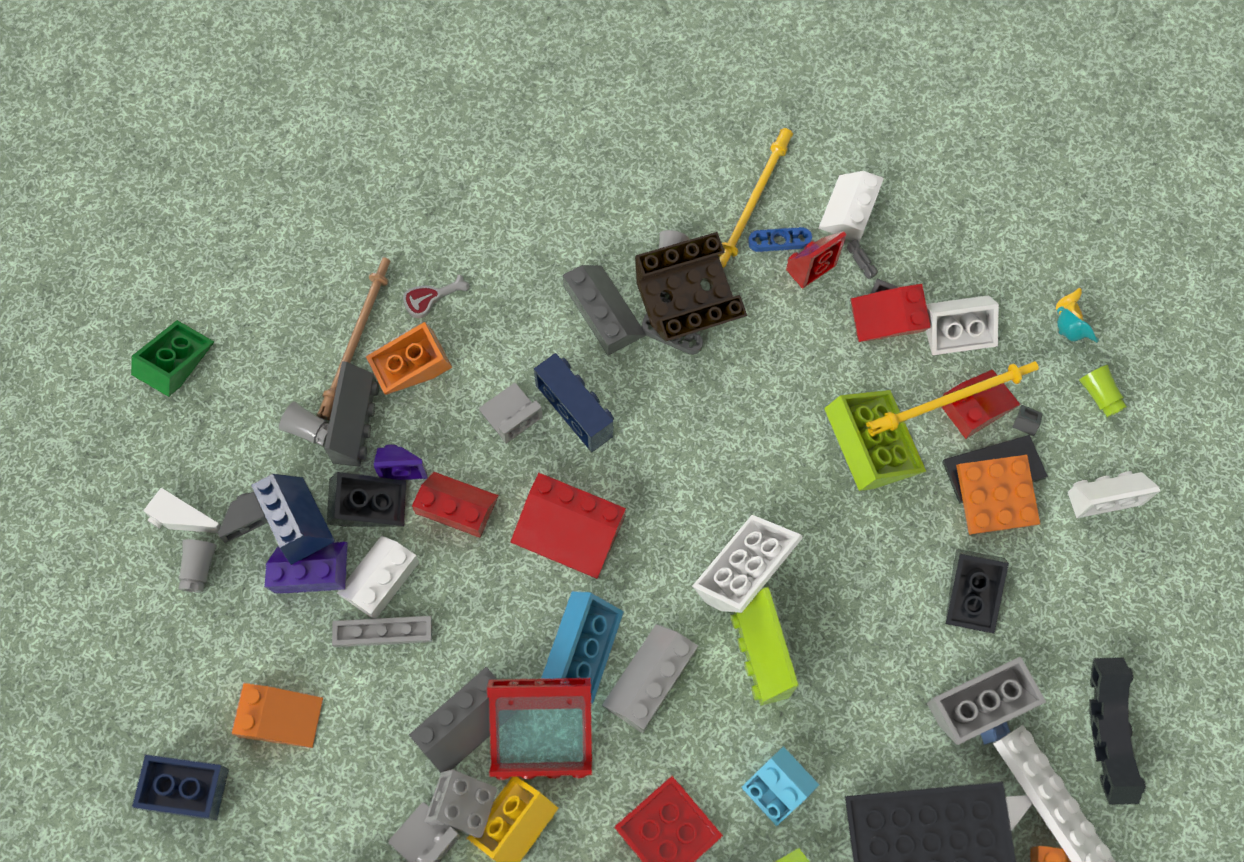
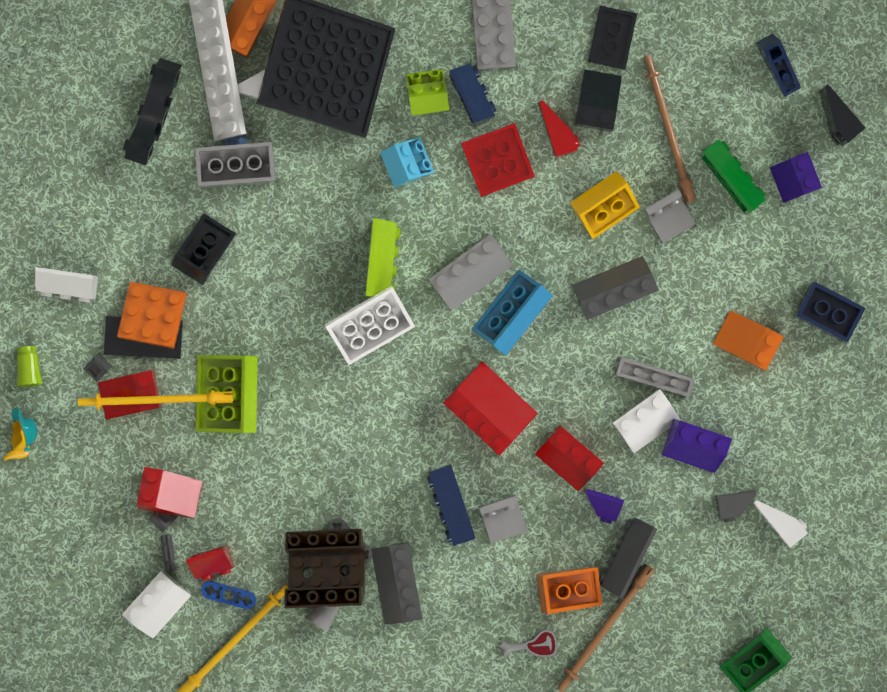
camera: 160 degrees left, 20 degrees up
(195, 564) = (779, 477): light grey plant -> none
(292, 515) = (696, 487): dark blue slope -> none
(304, 424) = (665, 563): light grey plant -> none
(365, 501) = (637, 483): black slope -> none
(461, 803) = (636, 230): light grey bracket -> none
(540, 728) = (563, 261): clear light blue panel -> none
(962, 325) = (114, 464): white slope -> none

